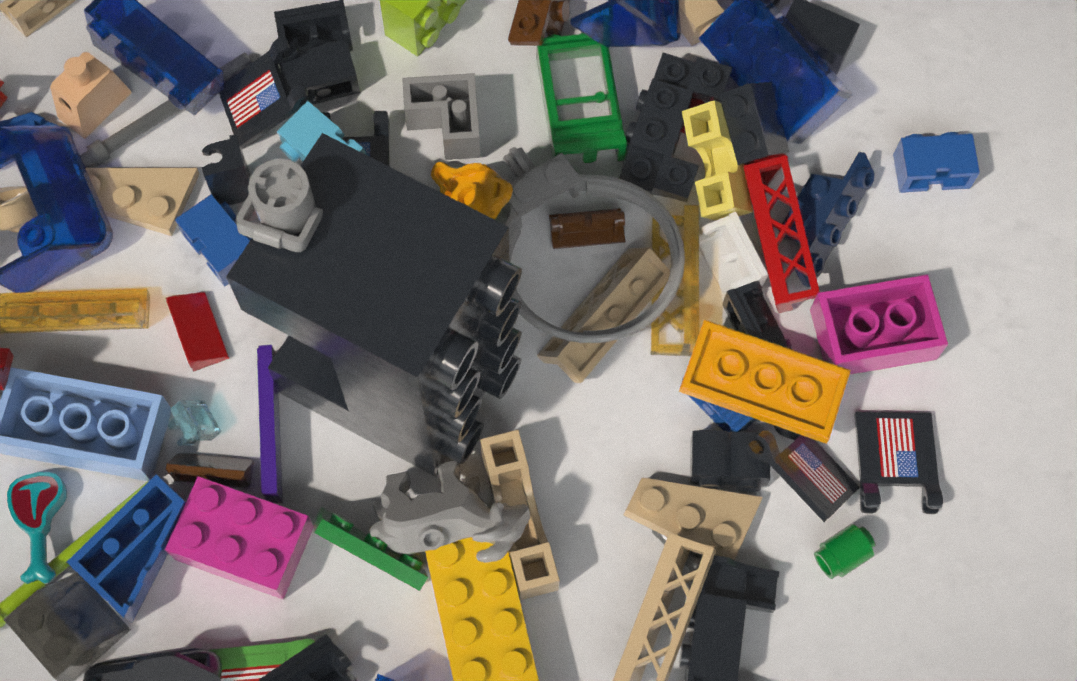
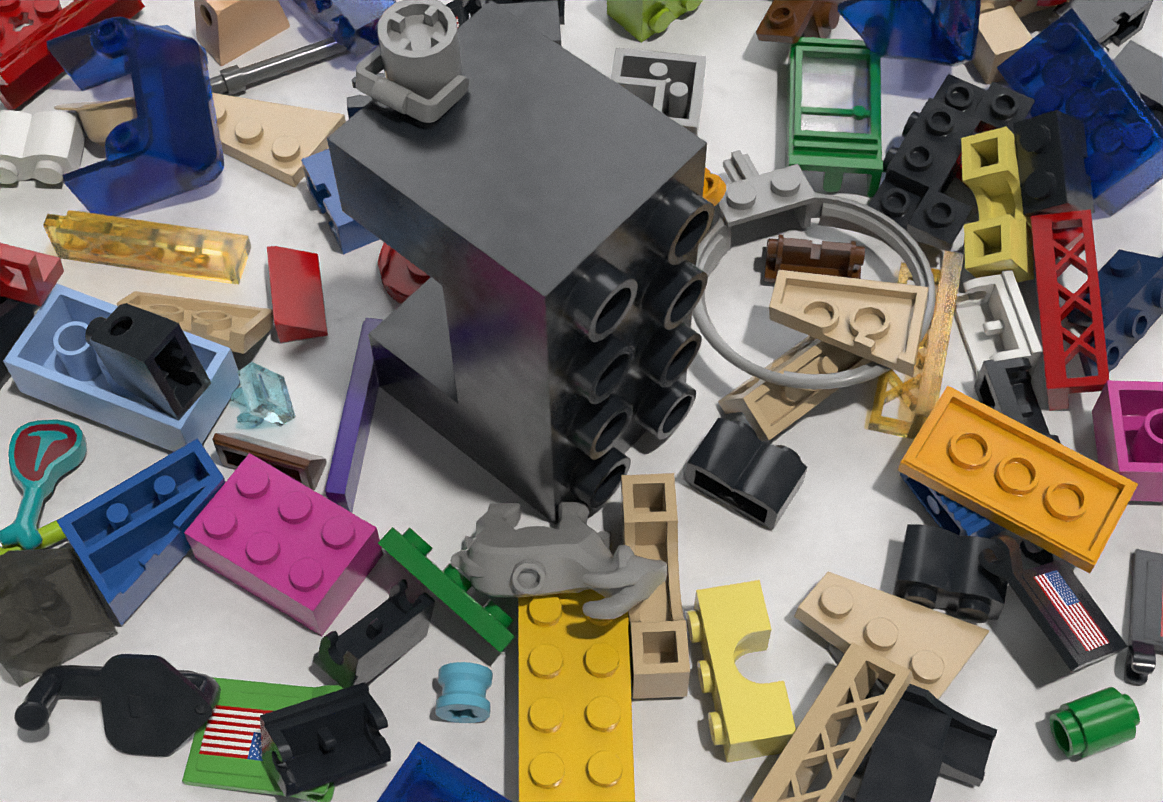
camera: 15 degrees right, 10 degrees down
(103, 421) = (133, 347): none -> black torso
(135, 369) = (219, 322): none -> tan wing
(325, 597) = (376, 638): none -> black hinge
(399, 623) = (464, 692): none -> medium azure wheel
(568, 410) = (746, 472): none -> black brick
(604, 598) = (748, 715): none -> light yellow arch
(627, 276) = (854, 314): none -> tan wing

